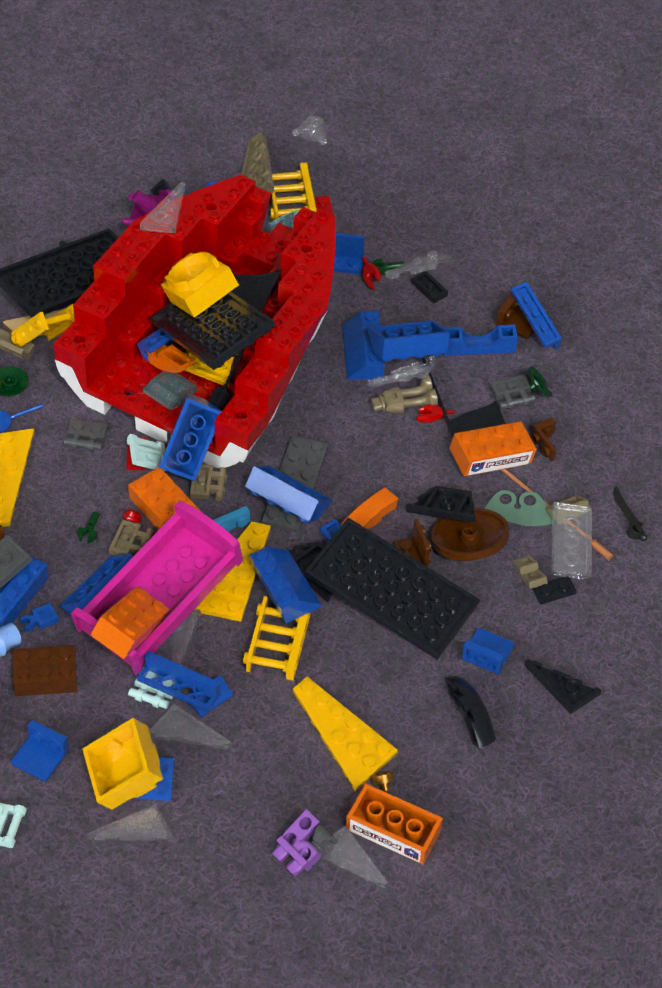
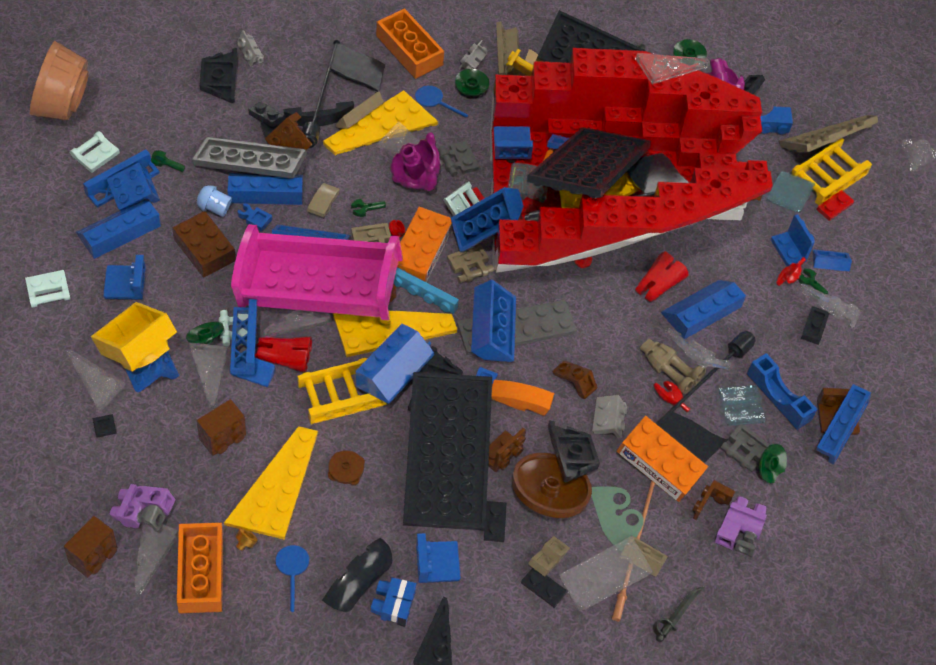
camera: 55 degrees right, 5 degrees up
(41, 464) = (396, 138): none -> clear wing
(59, 556) = (323, 200): none -> dark tan slope
(80, 462) = (417, 164): none -> magenta piece
(96, 214) = (690, 48): none -> dark green dish
(120, 378) = (512, 143): none -> blue bracket
(129, 622) = (259, 265): orange brick -> none
(148, 711) = (205, 333): none -> dark green dish
(191, 841) = (104, 426): none -> black tile
(198, 282) = (627, 132): yellow container -> none
(213, 656) = (285, 351): none -> red piece
(264, 743) = (221, 427): none -> reddish brown brick
(317, 360) = (661, 276): none -> red piece
(324, 898) = (91, 547): none -> reddish brown brick
(356, 673) = (346, 467): none -> reddish brown piece
(376, 241) = (831, 260): none -> blue slope
(377, 462) = (581, 376): none -> reddish brown bracket
(409, 340) = (727, 331): blue slope -> none
(424, 756) = (292, 561): none -> blue piece
(425, 465) = (609, 415): none -> light grey bracket
(471, 374) = (741, 405): none -> clear light blue slope
(486, 596) = (495, 521): none -> black plate
(510, 696) = (397, 602): none -> blue hips
(576, 432) = (745, 520): none -> medium lavender hips

